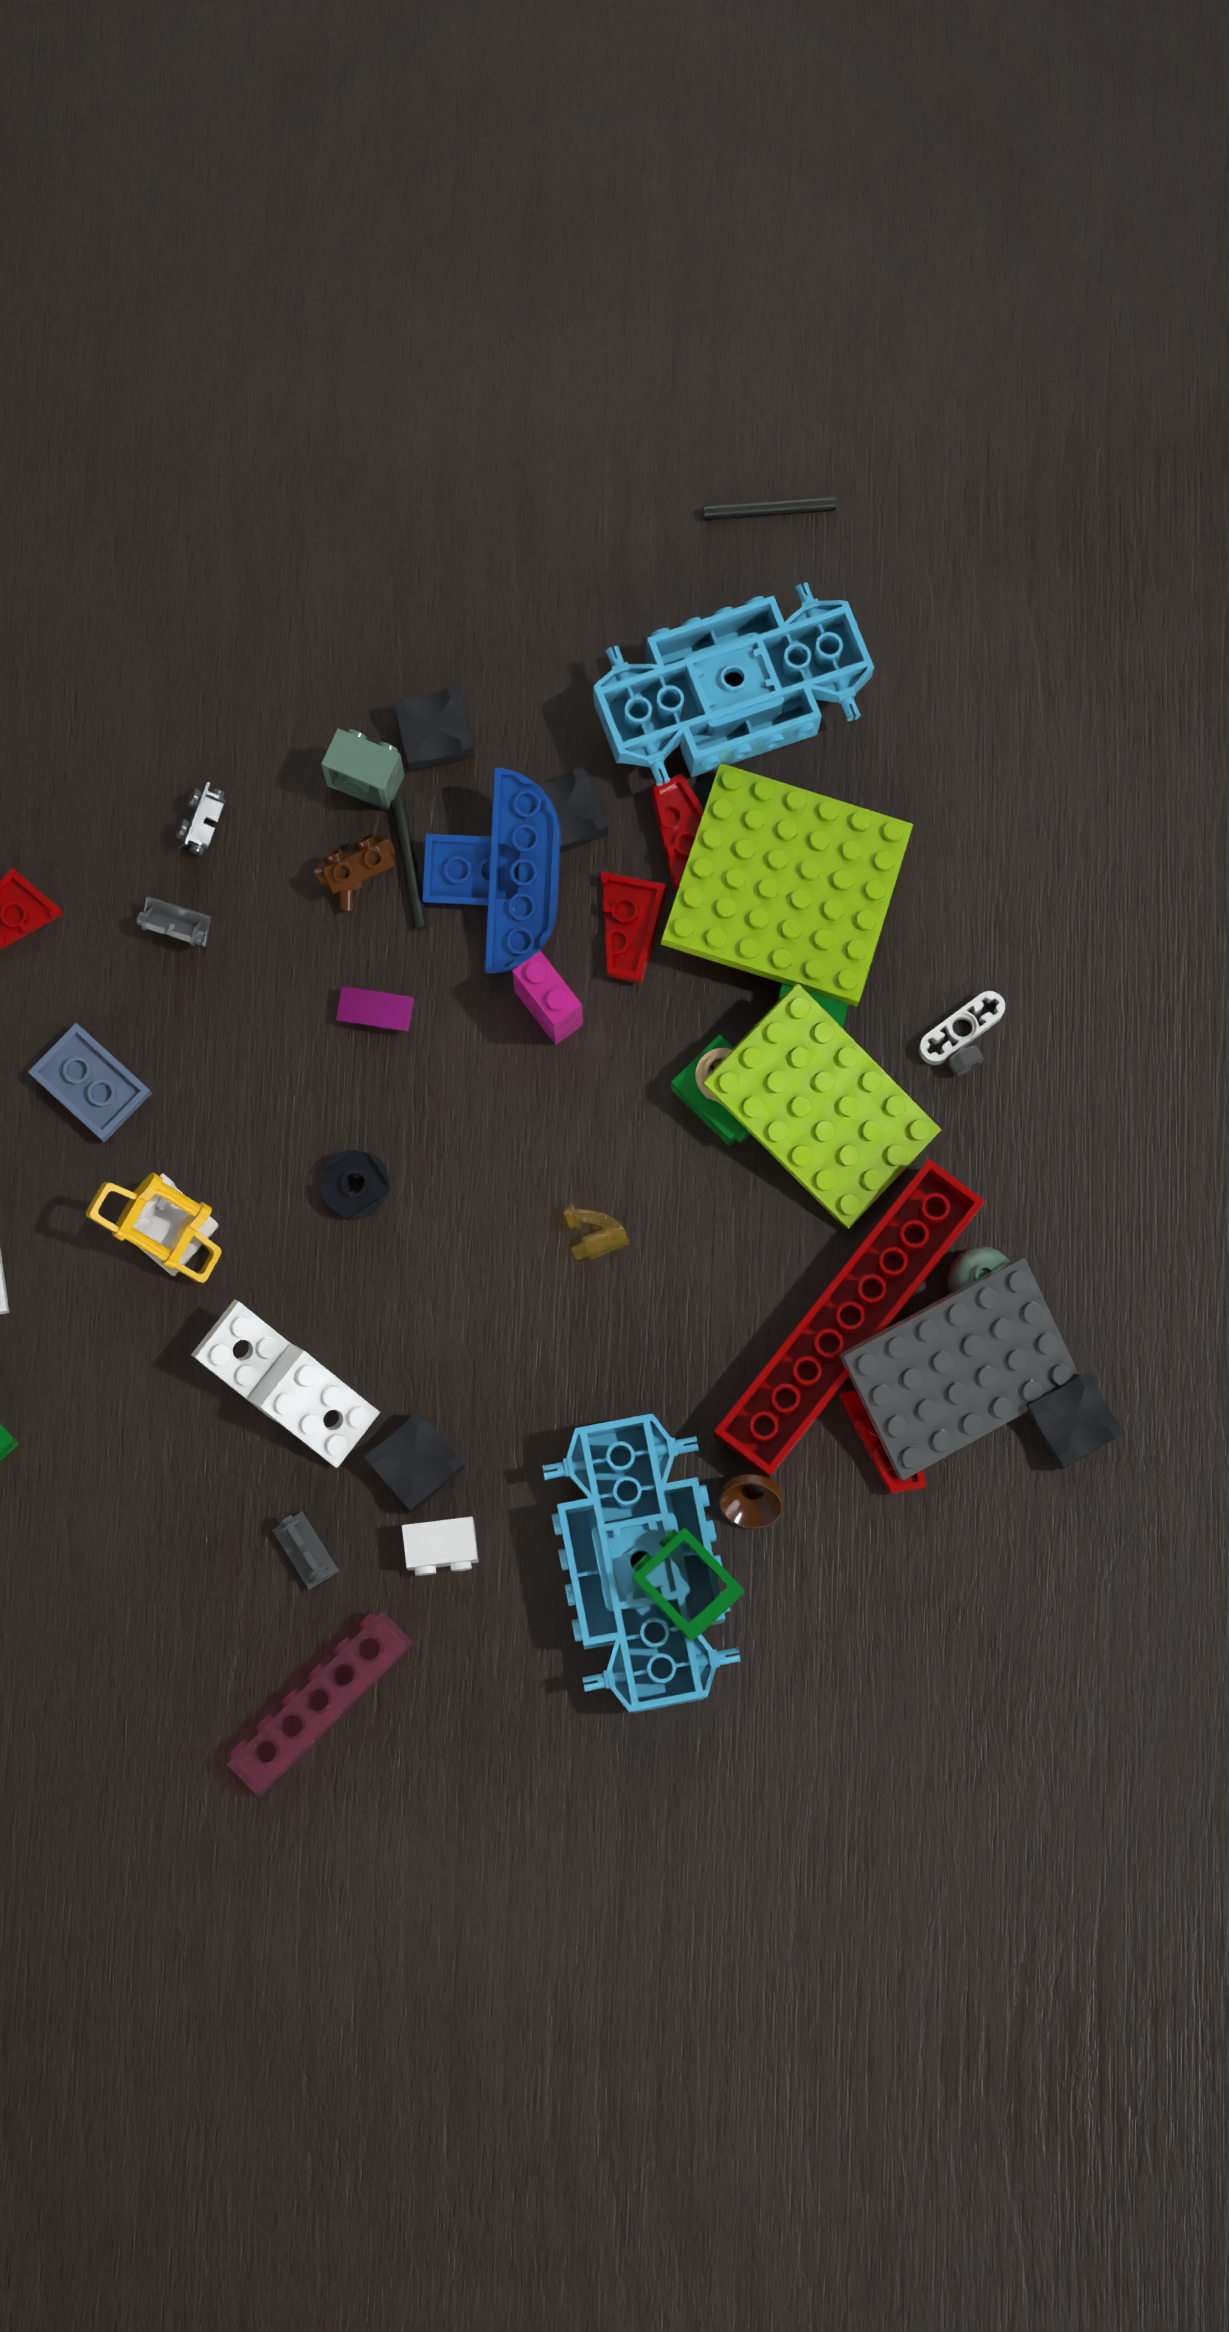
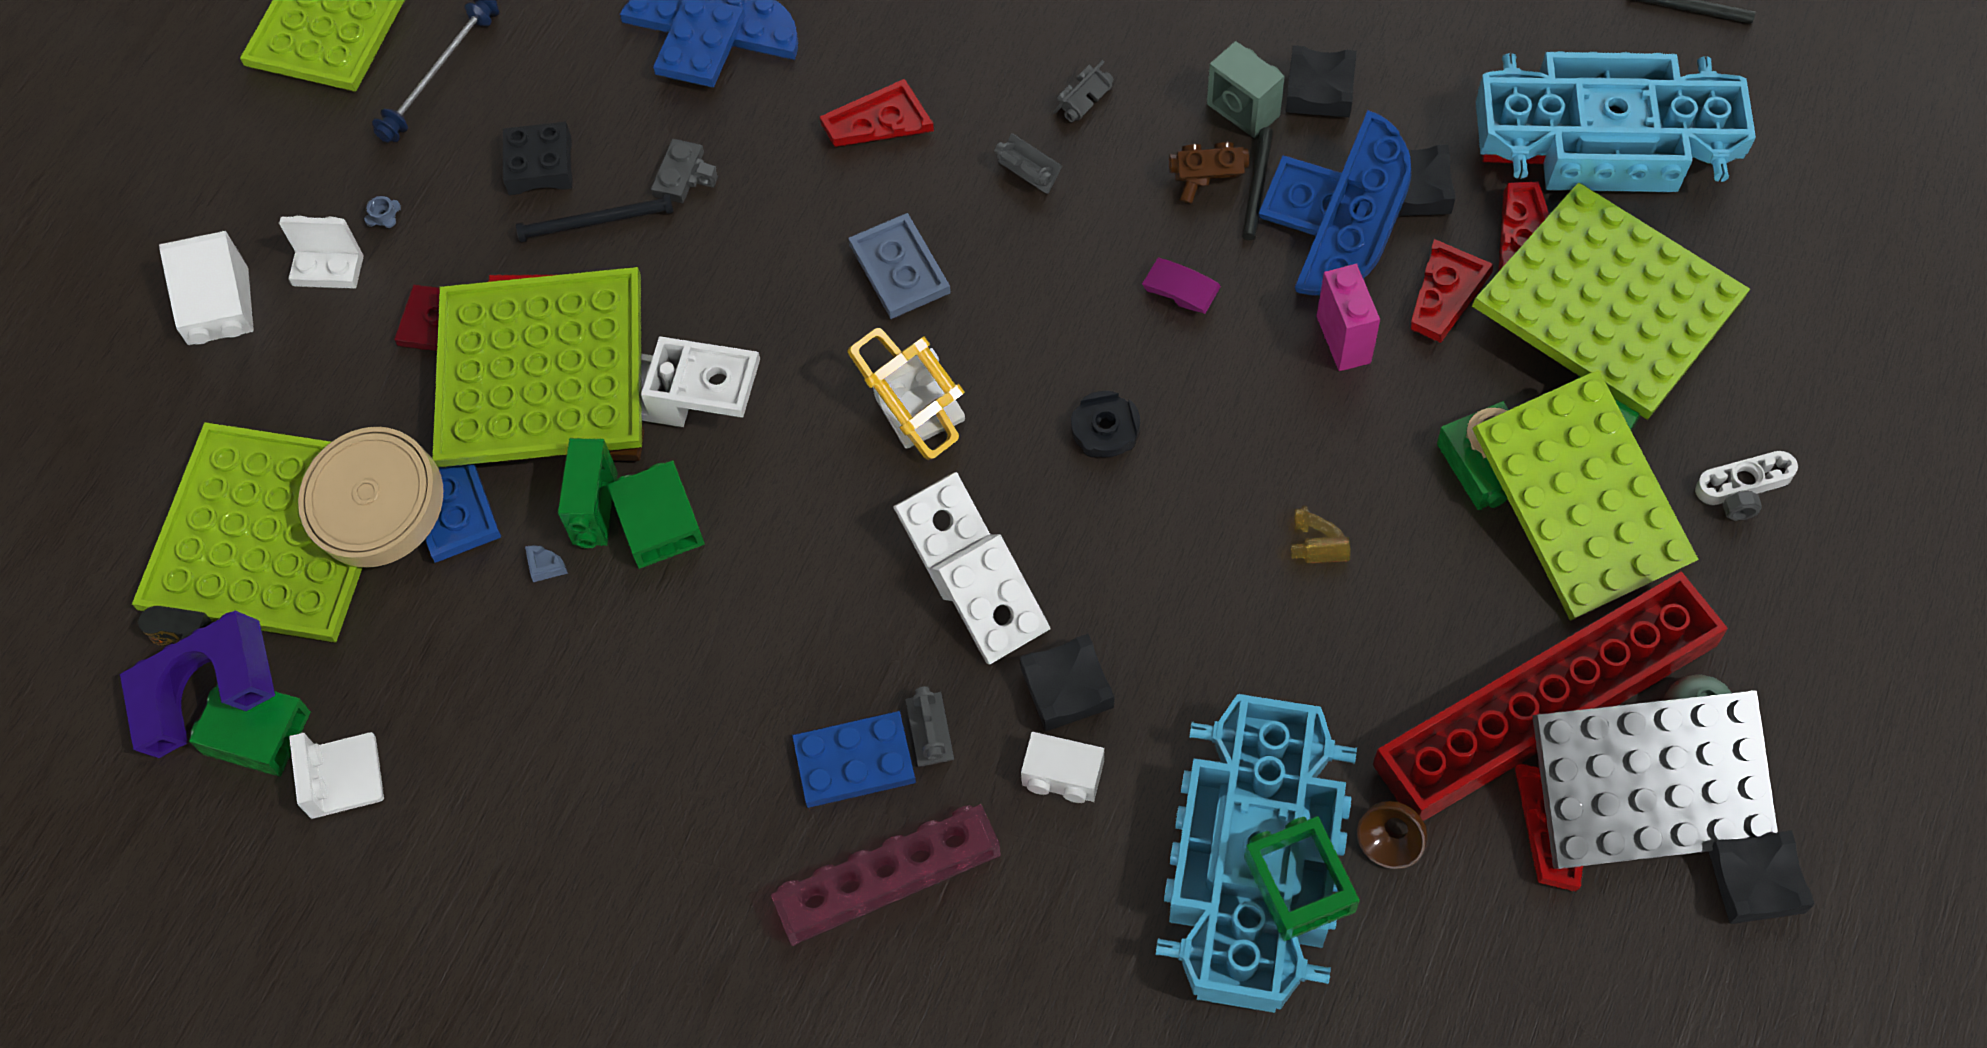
camera: 25 degrees right, 15 degrees down
(247, 1604) = (853, 759): none -> blue plate

